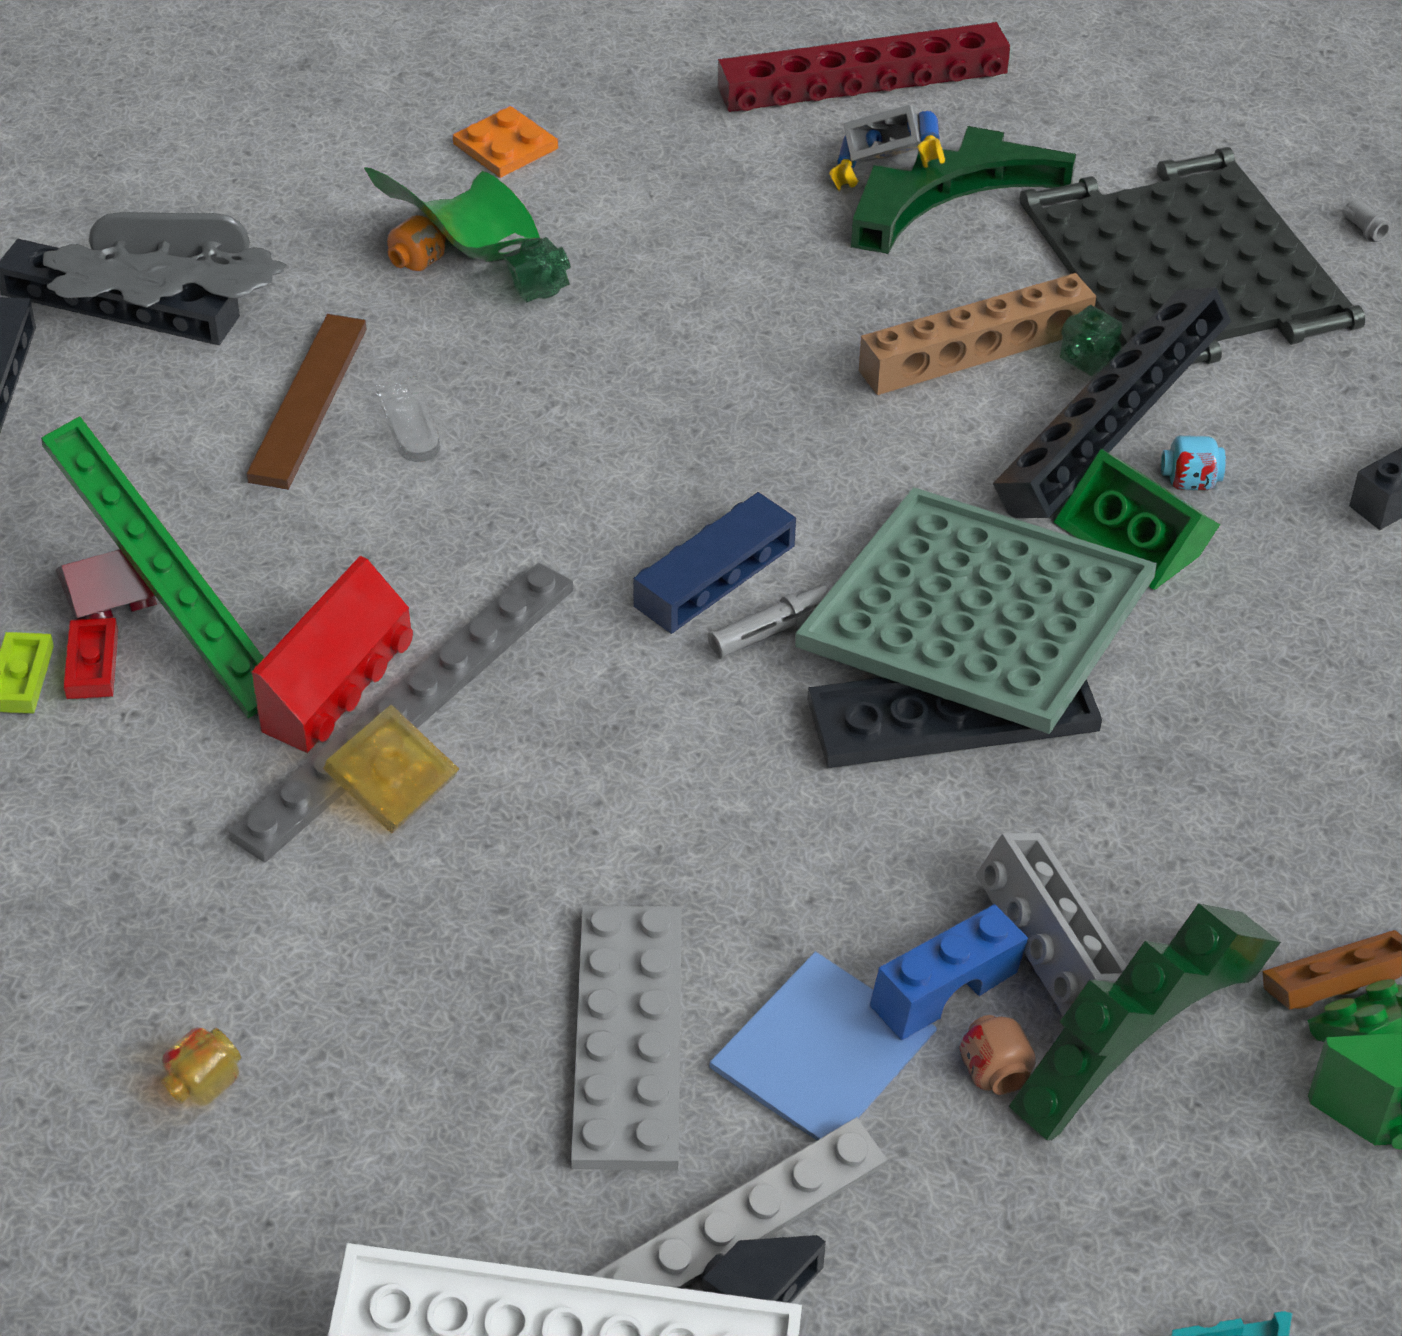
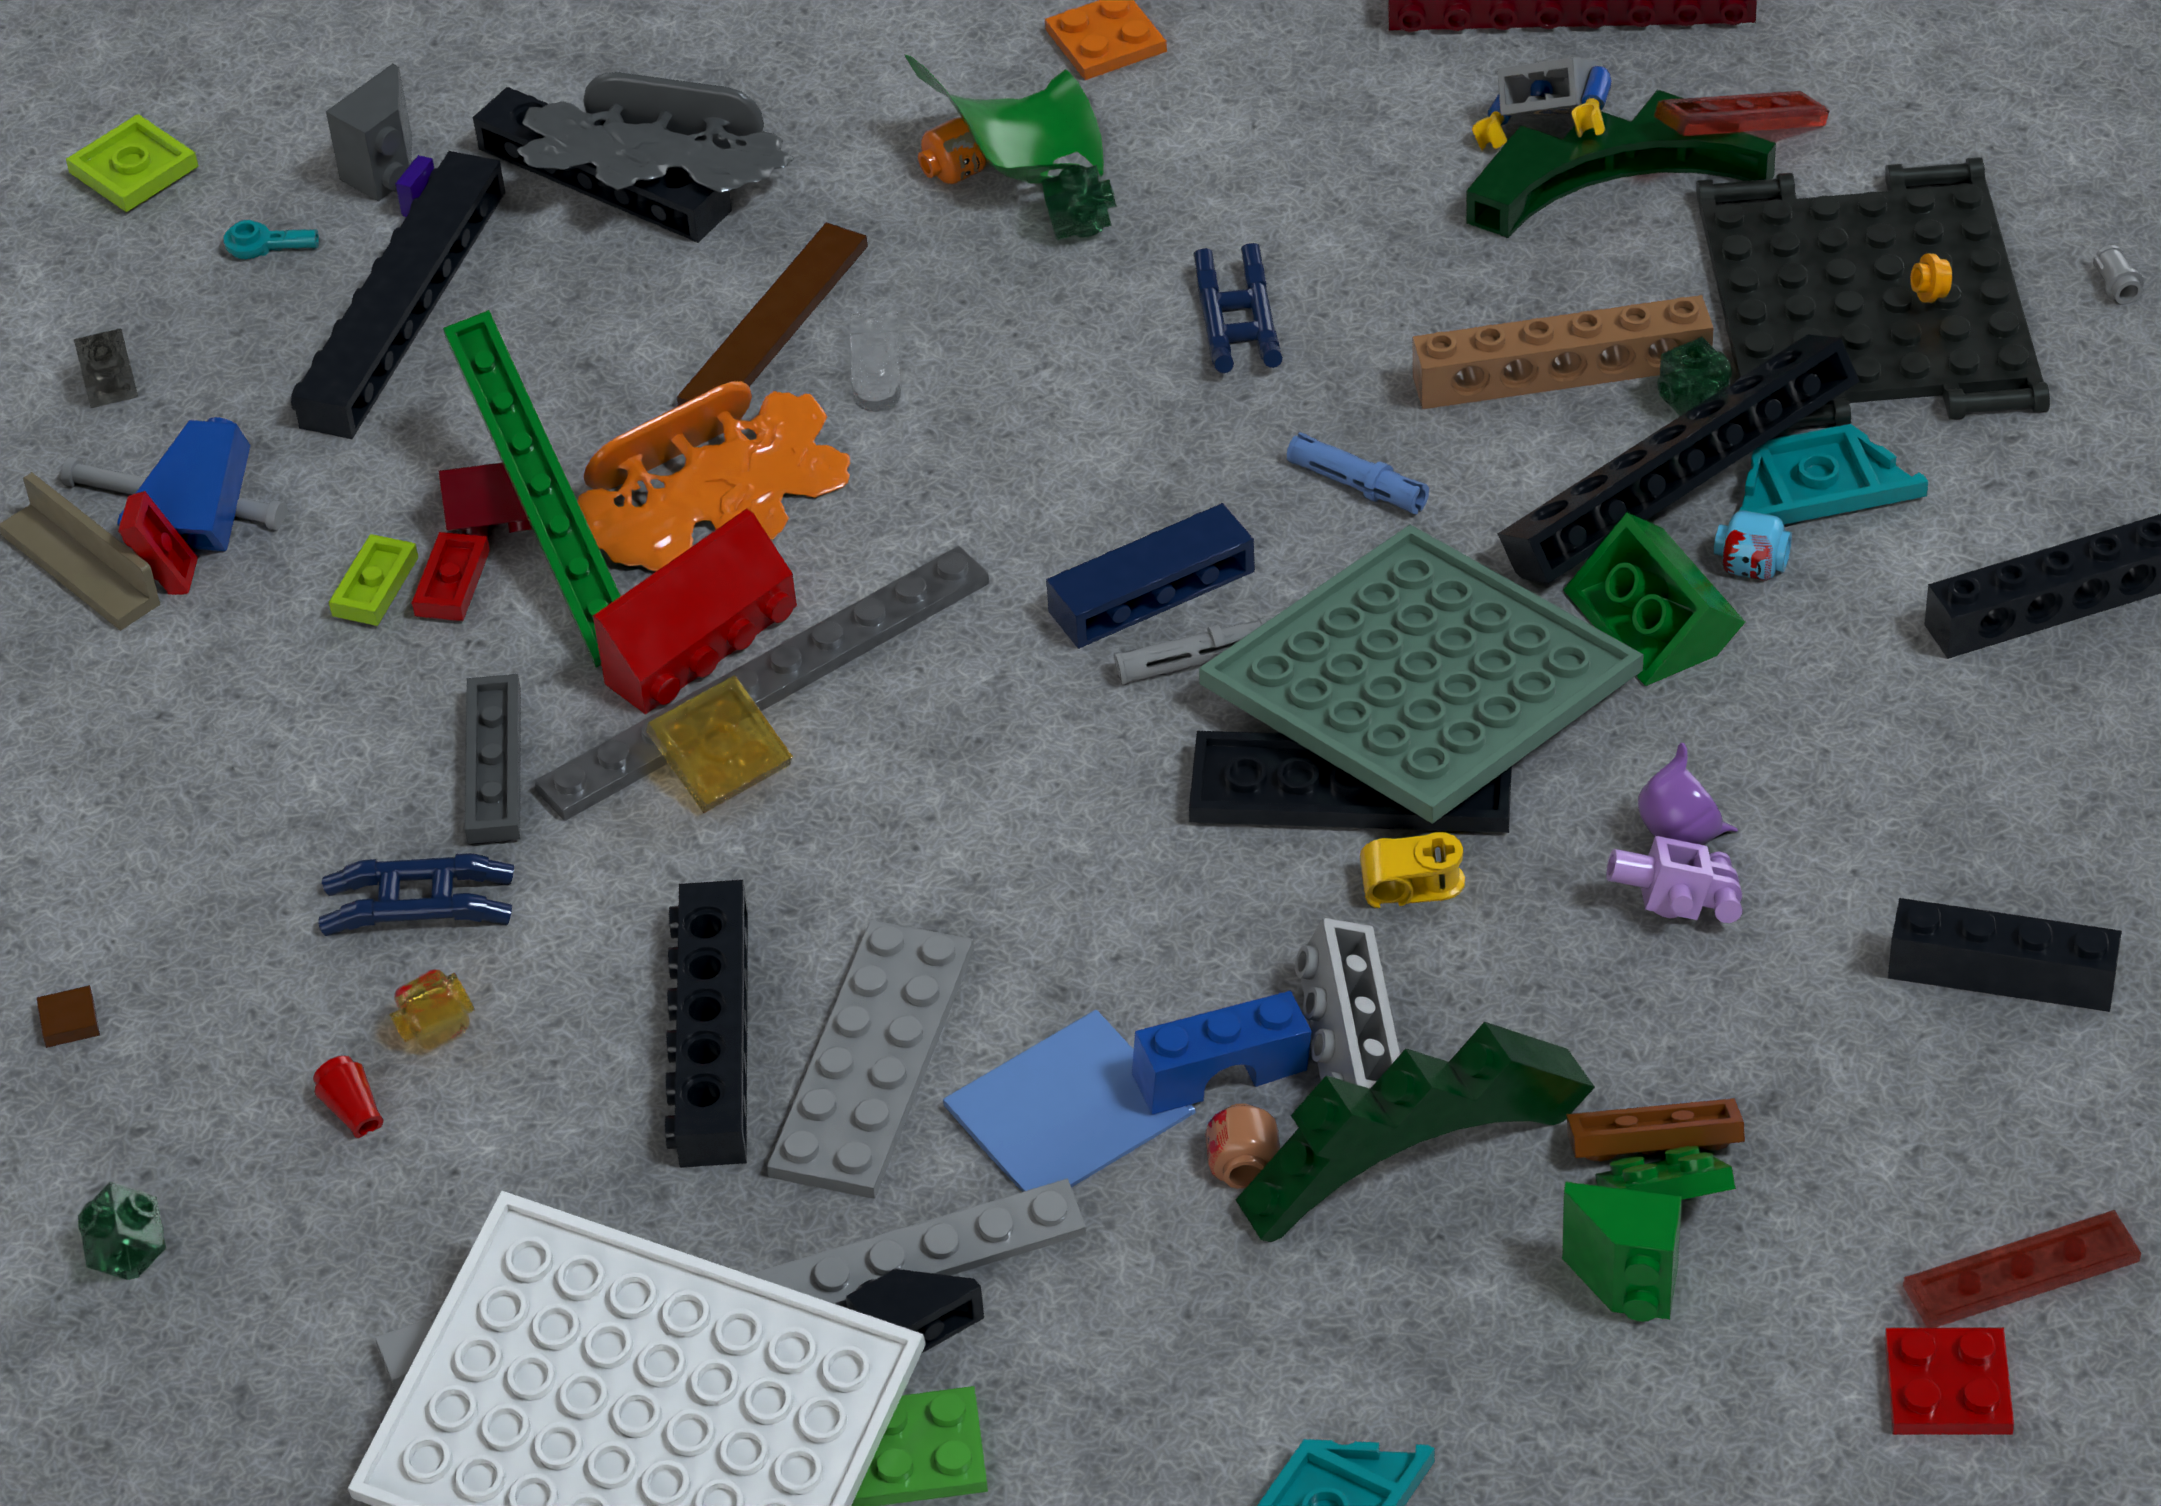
camera: 20 degrees right, 0 degrees up
(127, 974) = (440, 905): none -> dark blue piece
(142, 1167) = (347, 1093): none -> red cone
(182, 818) = (493, 758): none -> dark grey plate
(307, 540) = (715, 478): none -> orange plant
(464, 998) = (710, 1025): none -> black brick
(703, 325) = (1253, 297): none -> dark blue piece
(840, 450) = (1373, 479): none -> medium blue pin
(1035, 779) = (1408, 870): none -> yellow piece
(1039, 135) = (1741, 113): none -> clear red tile
(1223, 400) = (1825, 476): none -> teal wing
(1241, 684) = (1679, 806): none -> medium lavender hair
(1242, 237) = (1931, 278): none -> light orange plate
(1267, 747) = (1680, 879): none -> lavender piece

